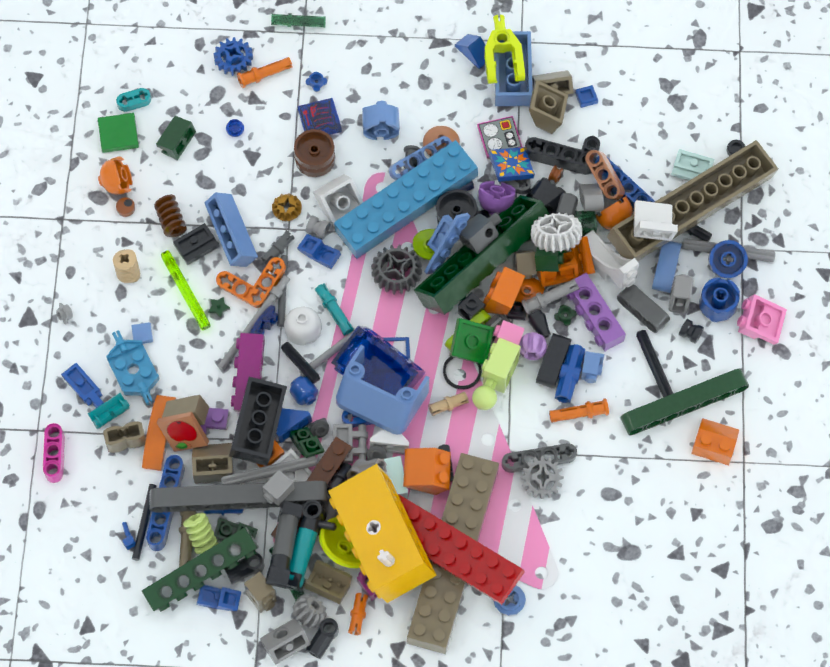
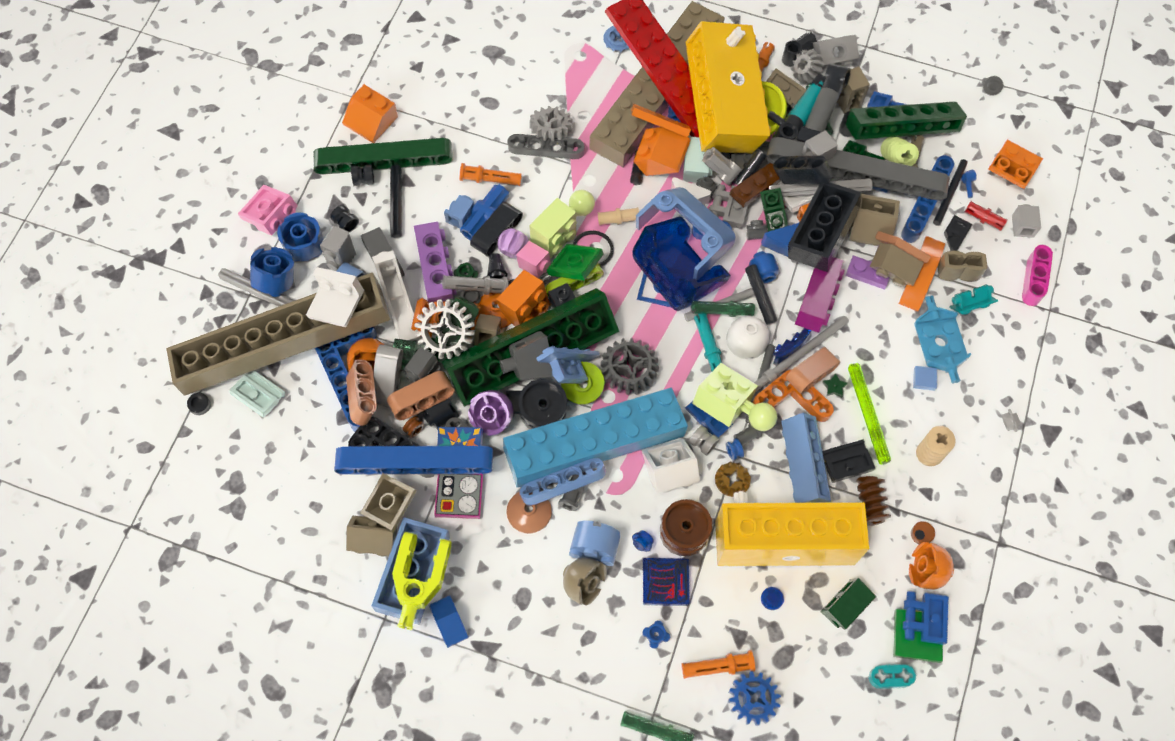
camera: 165 degrees left, 0 degrees up
(69, 506) = (1026, 221): none -> light grey brick
(83, 385) = (998, 335): blue hinge -> none
(87, 556) = (1015, 164): none -> orange slope
(108, 502) = (985, 215): none -> pin
(109, 142) = (934, 617): none -> blue plate
(118, 655) = (992, 85): none -> dark grey plate
(132, 481) = (956, 232): none -> black tile
(233, 158) = (790, 533): none -> yellow piece
(240, 305) = (812, 370): none -> nougat beam
(275, 247) = (729, 394): none -> yellowish green brick
(282, 461) = (803, 169): none -> black beam
(291, 226) = (734, 449): none -> blue bush
(323, 343) = (723, 308): none -> clear green pin
(345, 139) = (642, 541): none -> clear blue plate
(384, 91) = (583, 578): none -> dark tan cylinder
(436, 489) = (660, 120): none -> orange tile
(541, 136) = (413, 460): none -> blue beam
(557, 185) = (420, 395): none -> nougat beam
(586, 96) = (337, 518): blue tile -> none
(694, 376) = (358, 177): none -> black wheel

